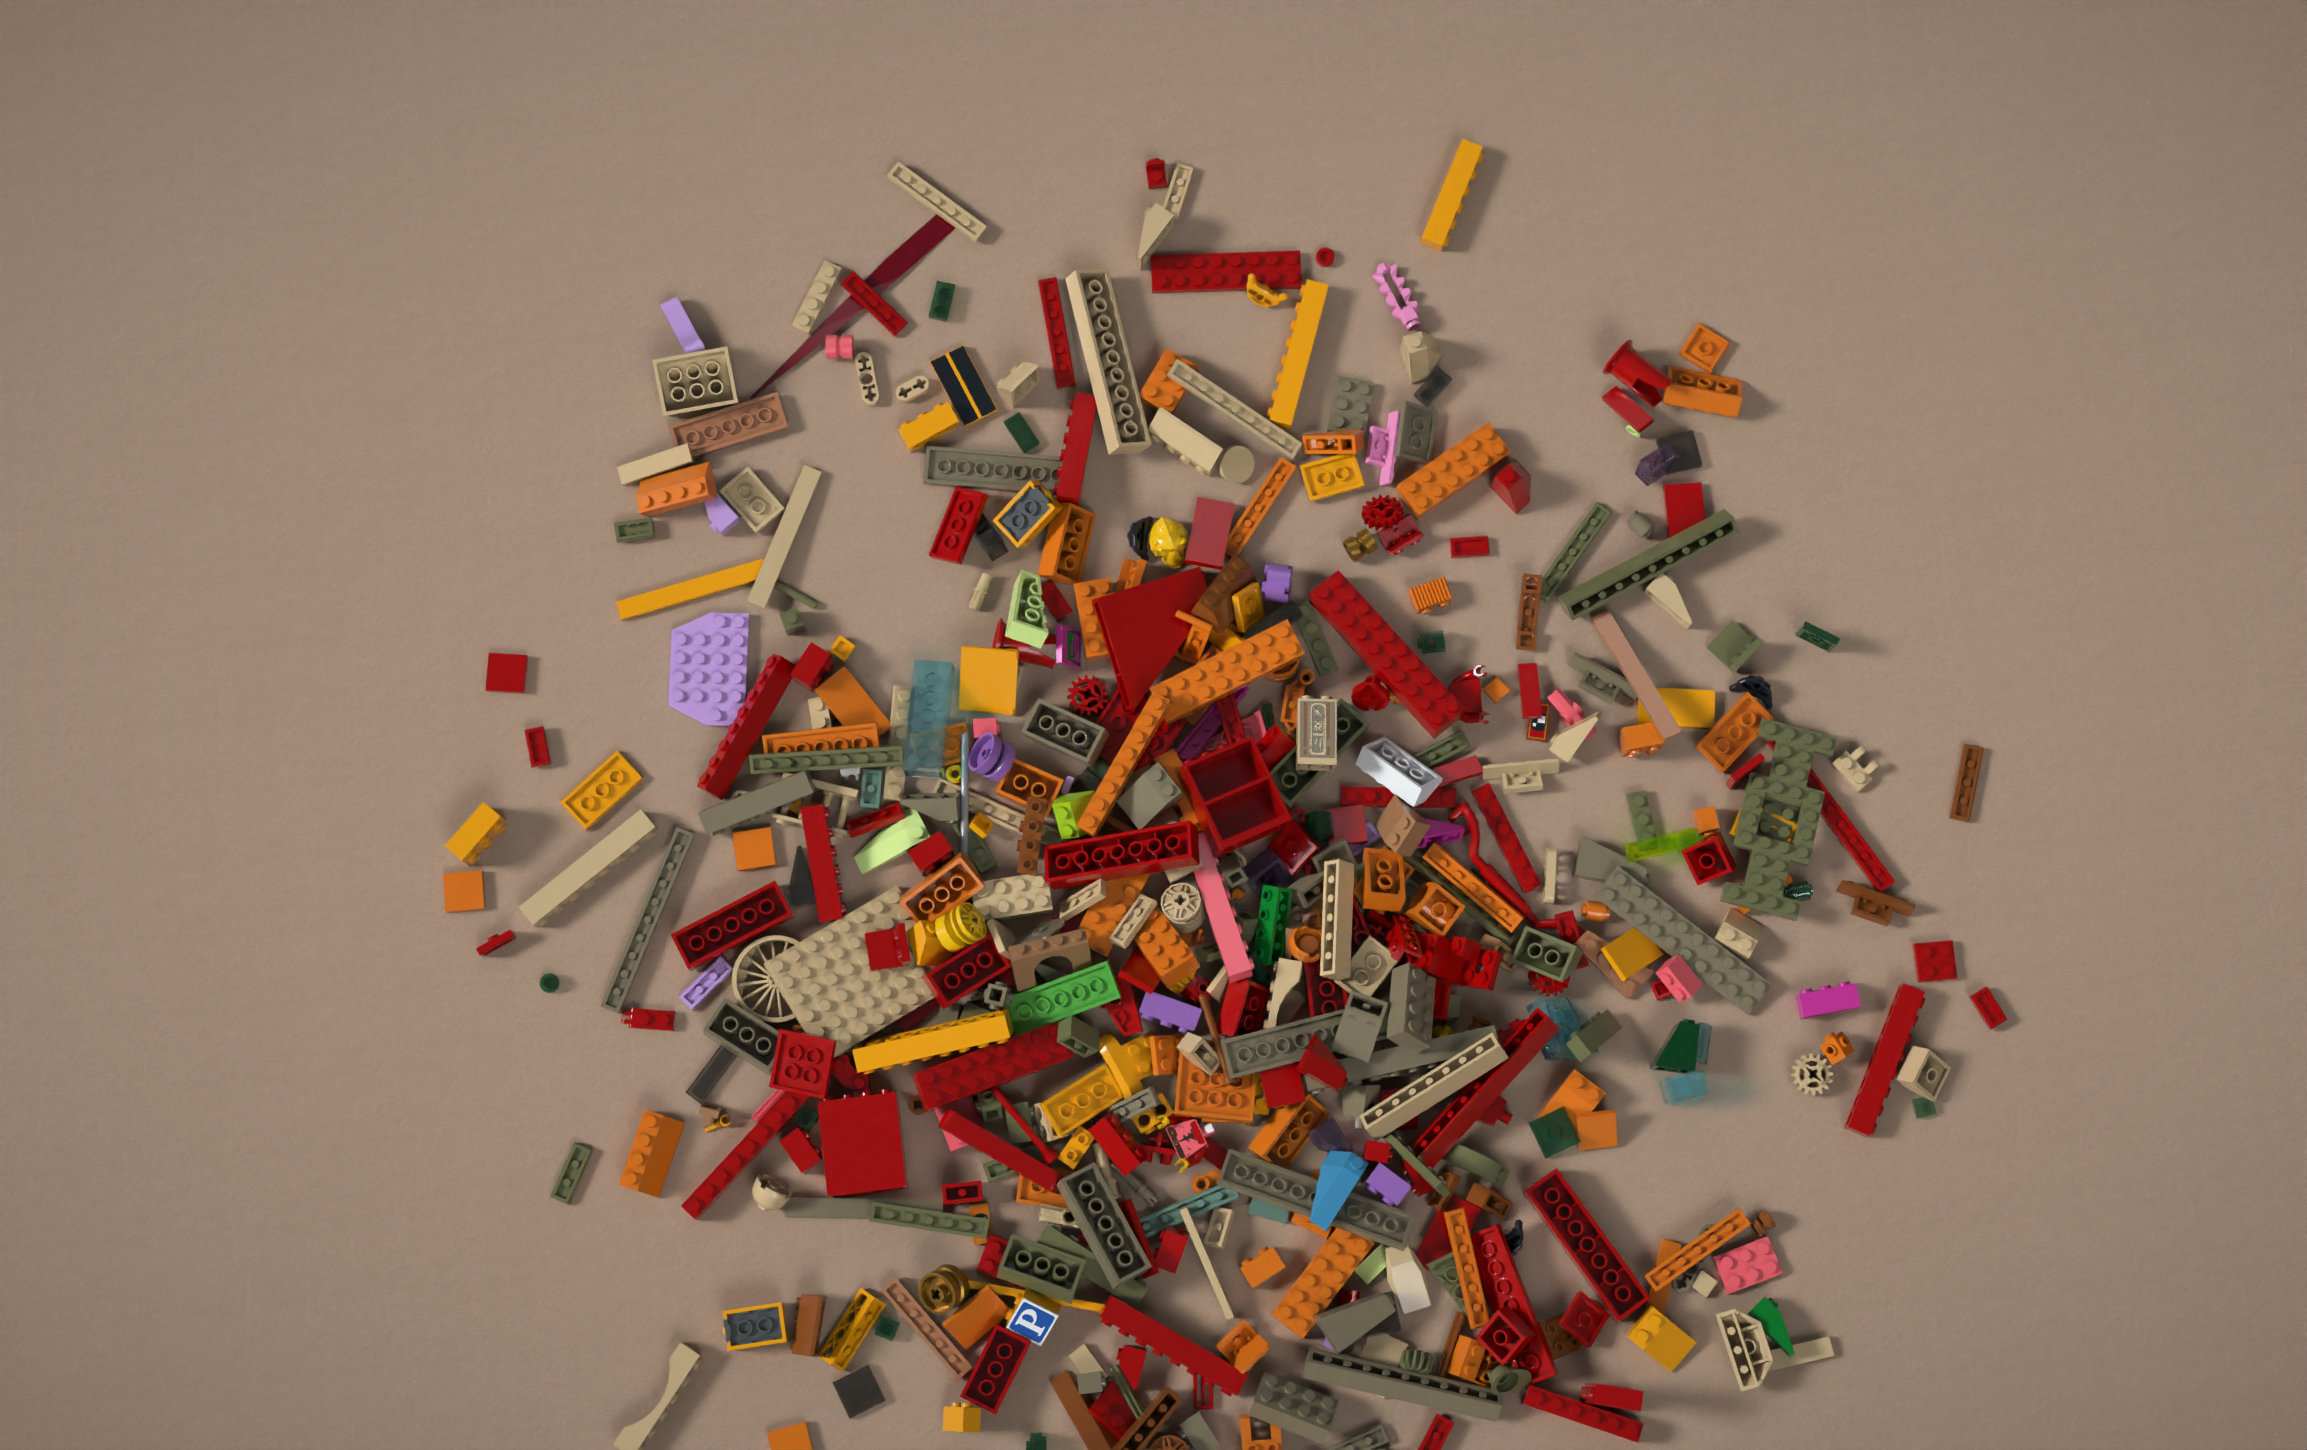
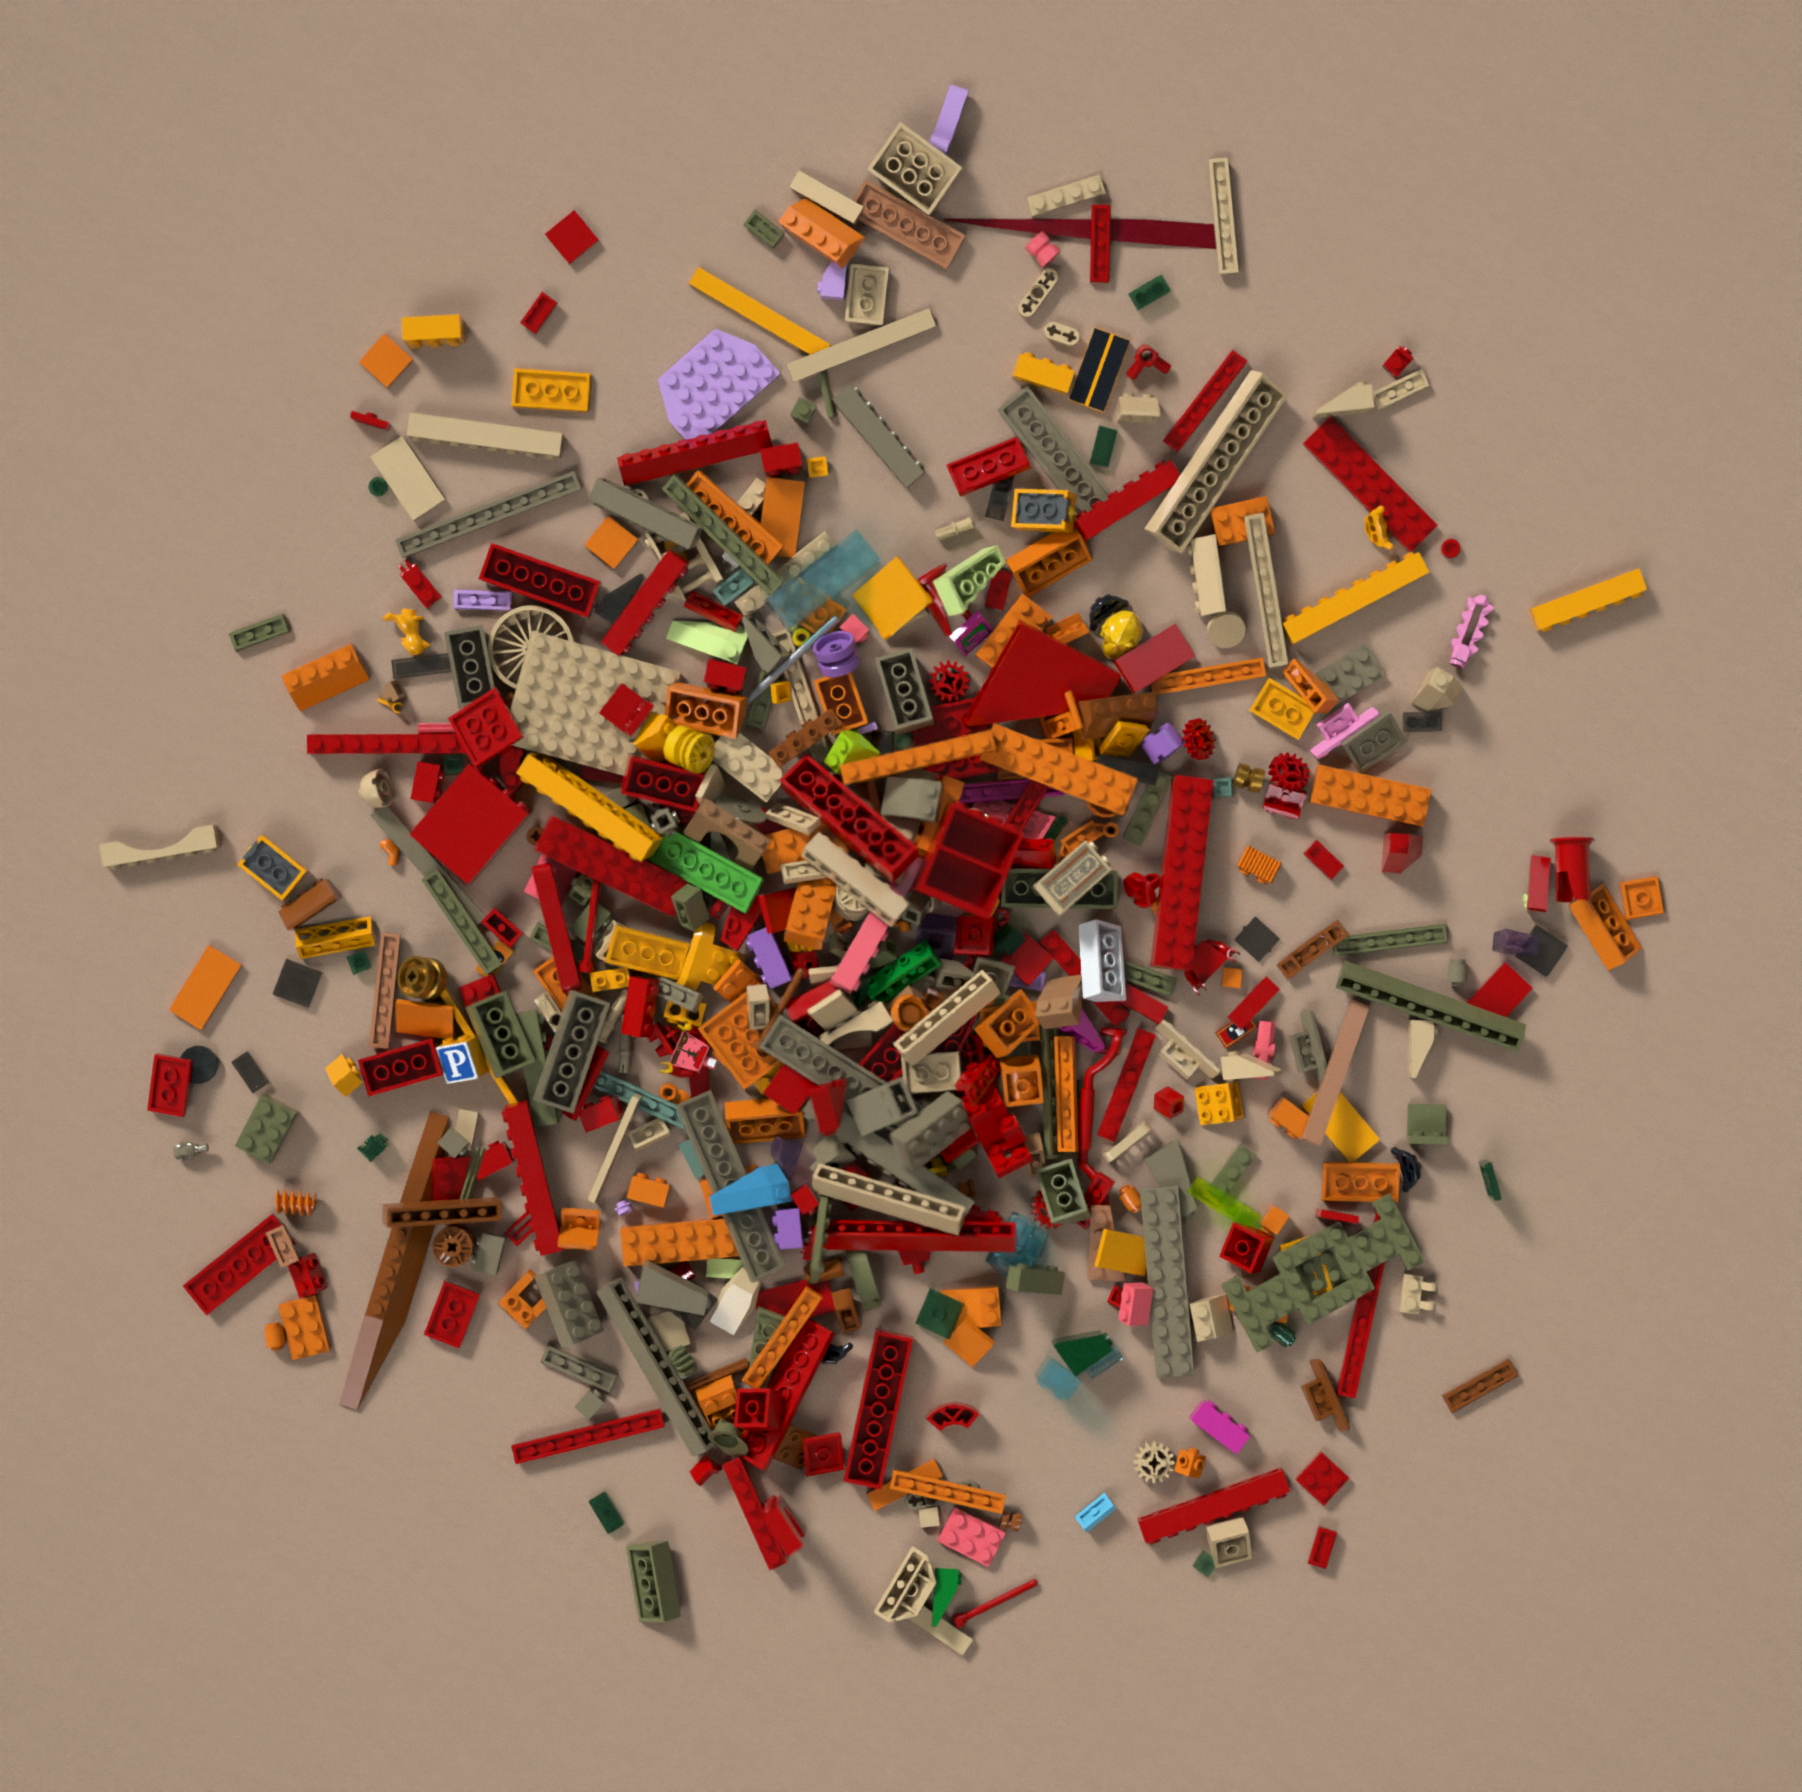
camera: 50 degrees right, 10 degrees up
(564, 955) = (407, 478): none -> tan tile
(673, 1054) = (409, 624): none -> light orange animal
(826, 1224) = (393, 851): none -> orange arm
(861, 584) = (877, 436): none -> dark tan brick
(986, 352) = (1153, 360): none -> red axle
(1098, 1018) = (718, 909): none -> red tile
(1171, 892) = (855, 879): none -> tan brick
(1253, 999) = (832, 1010): none -> tan tile
(1258, 1299) = (623, 1208): none -> lavender plate
(1298, 554) = (1198, 739): none -> red gear
(1350, 570) = (1222, 787): none -> sand green tile
(1438, 646) = (1223, 905): clear green brick -> none
(1484, 646) = (1257, 939): none -> clear smoke piece
(1514, 1423) = (704, 1470): none -> red tile
(1548, 818) = (1168, 1102): none -> red panel
(1581, 782) = (1219, 1103): none -> light orange bracket
(1640, 1191) = (952, 1413): none -> red brick
(1660, 1338) = (860, 1520): light orange slope -> none
(1805, 1330) = (961, 1618): none -> red piece
(1812, 1153) = (1095, 1512): none -> medium azure plate

